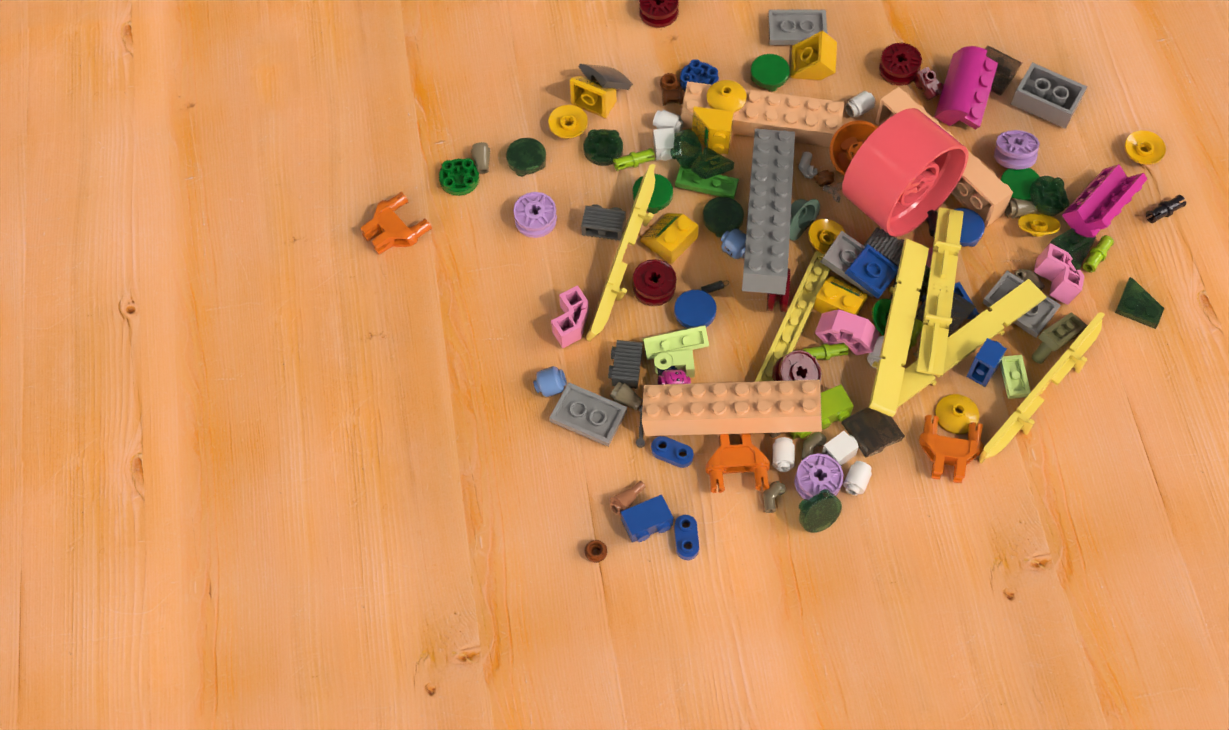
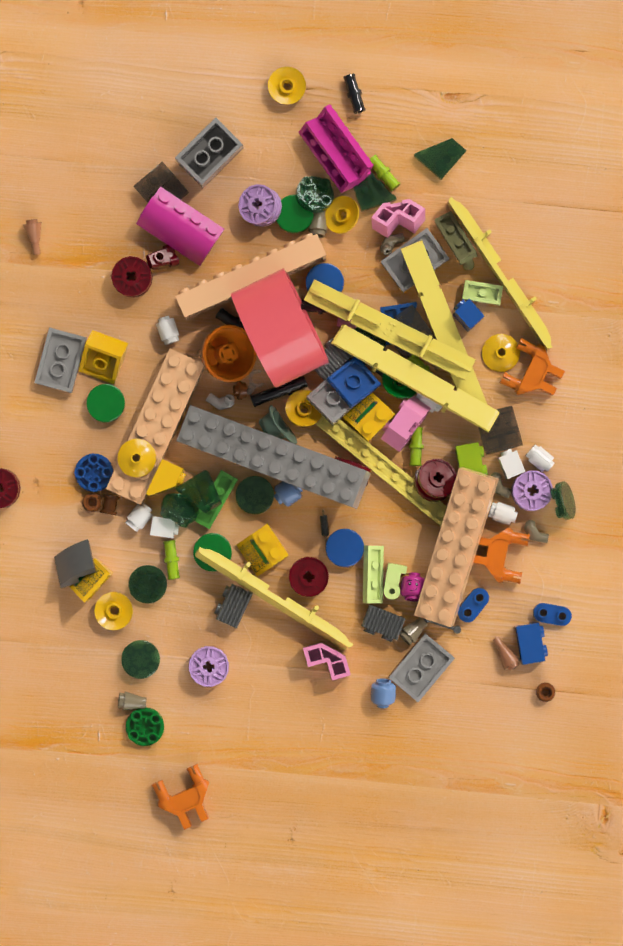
camera: 80 degrees left, 25 degrees up
(836, 213) = (274, 393): none -> black pin

